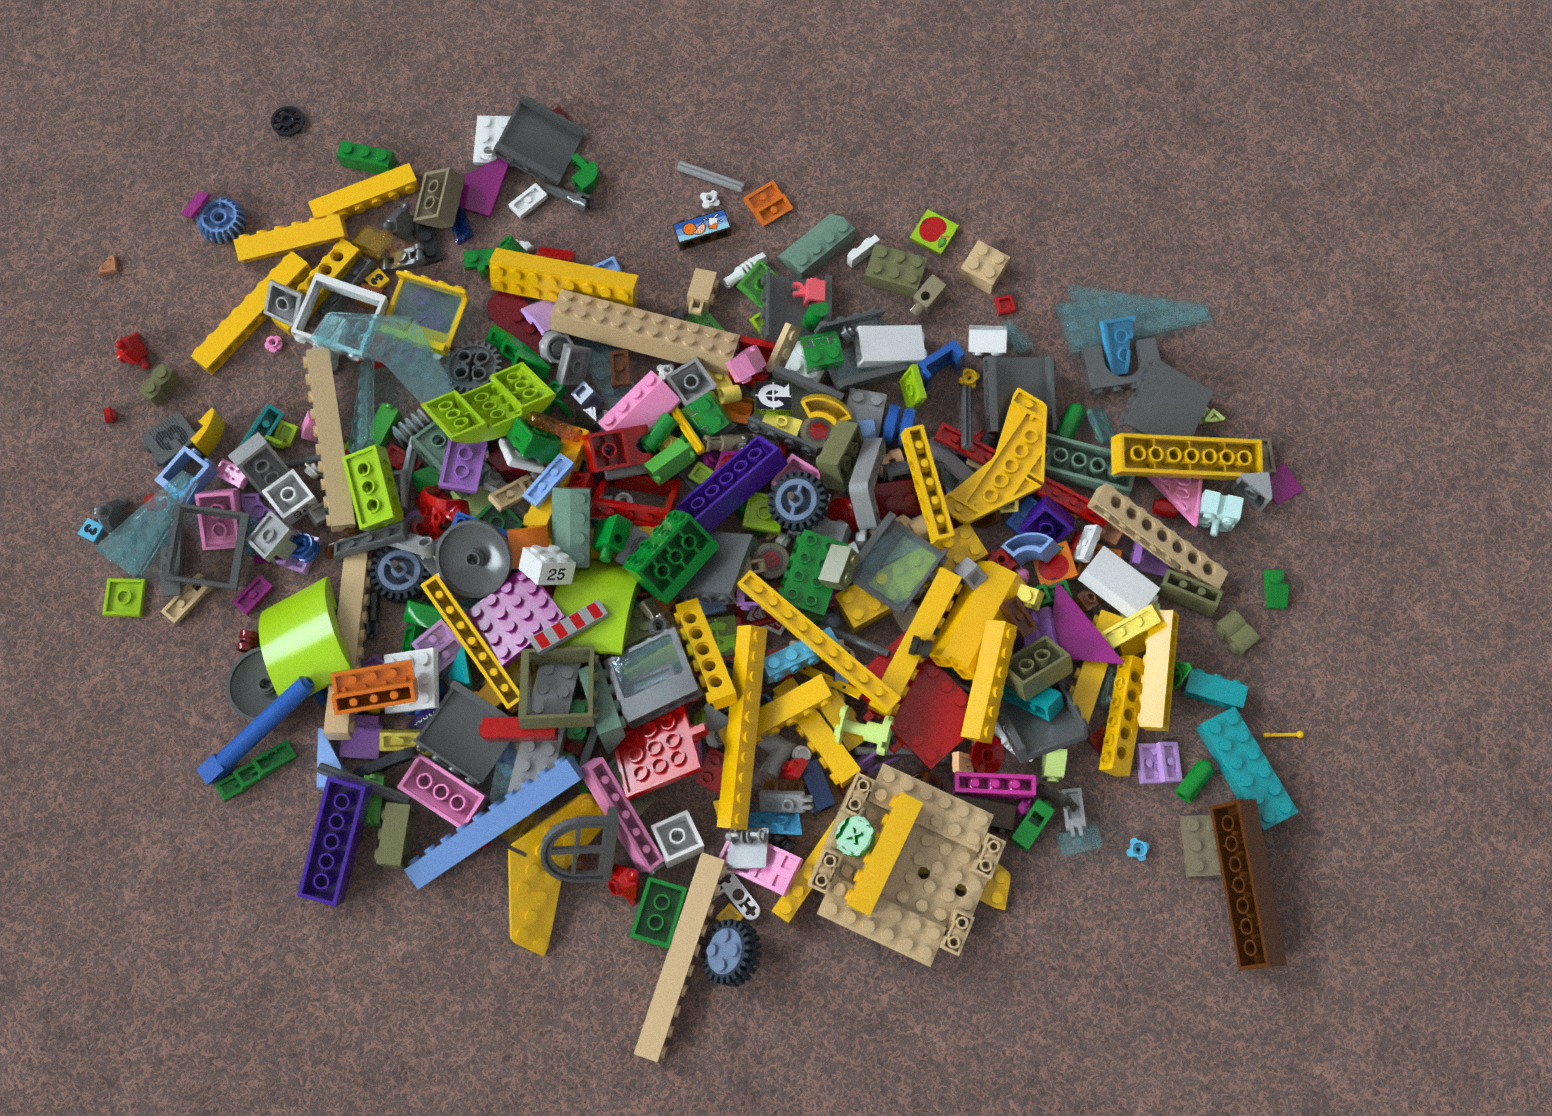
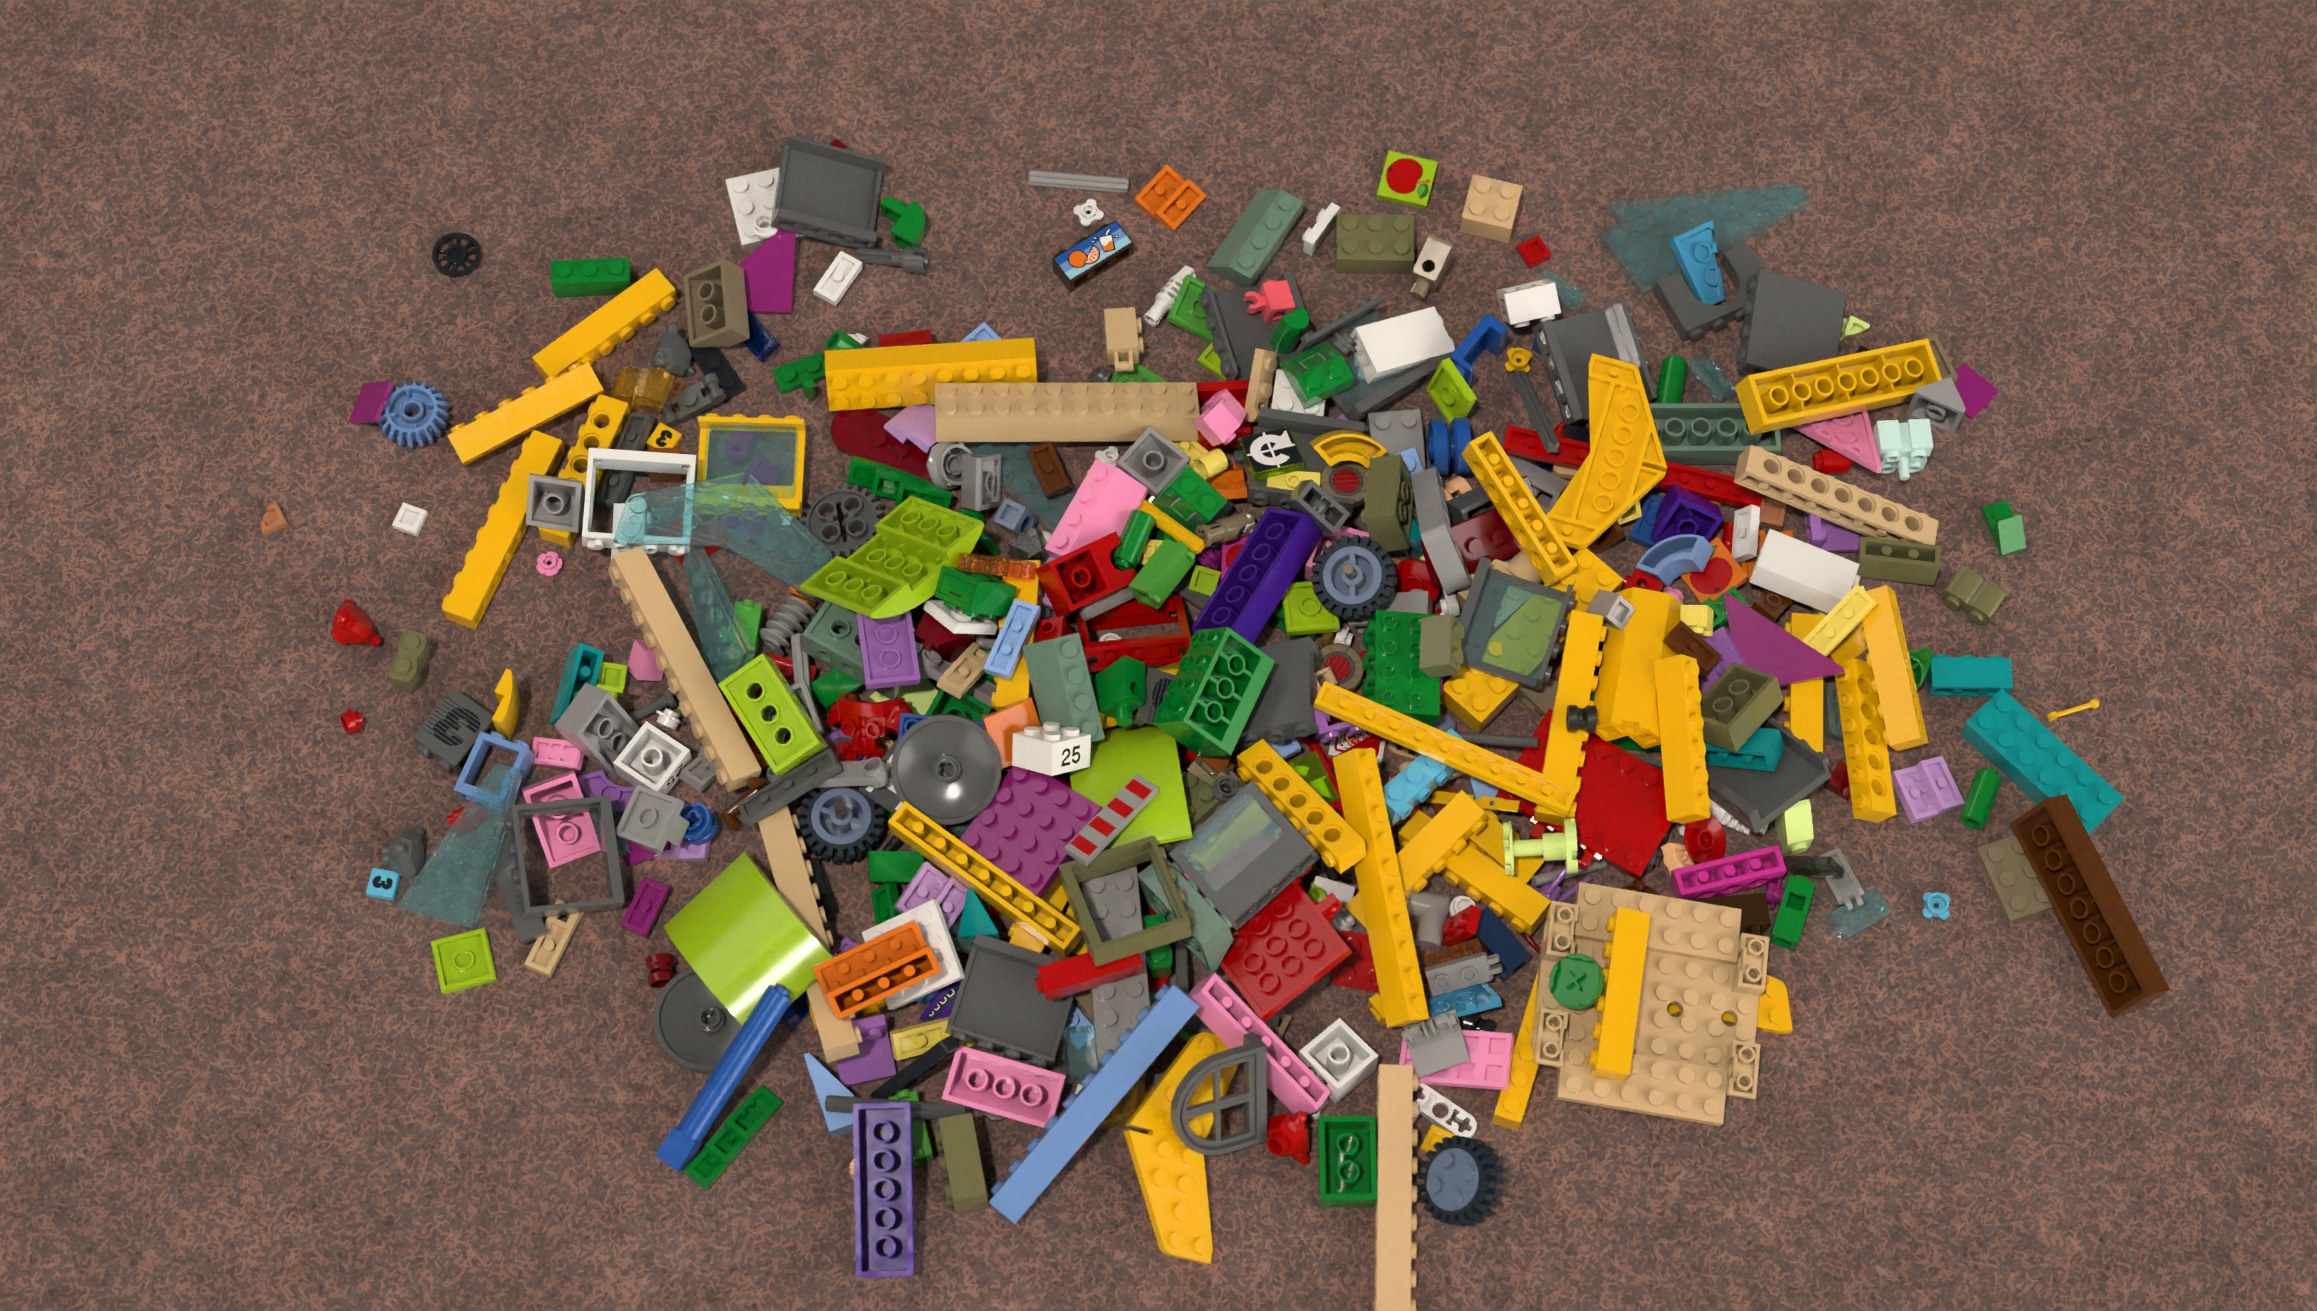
camera: 20 degrees left, 5 degrees down
(196, 289) = (410, 519): none -> white tile
(789, 445) = (1319, 505): none -> dark grey brick

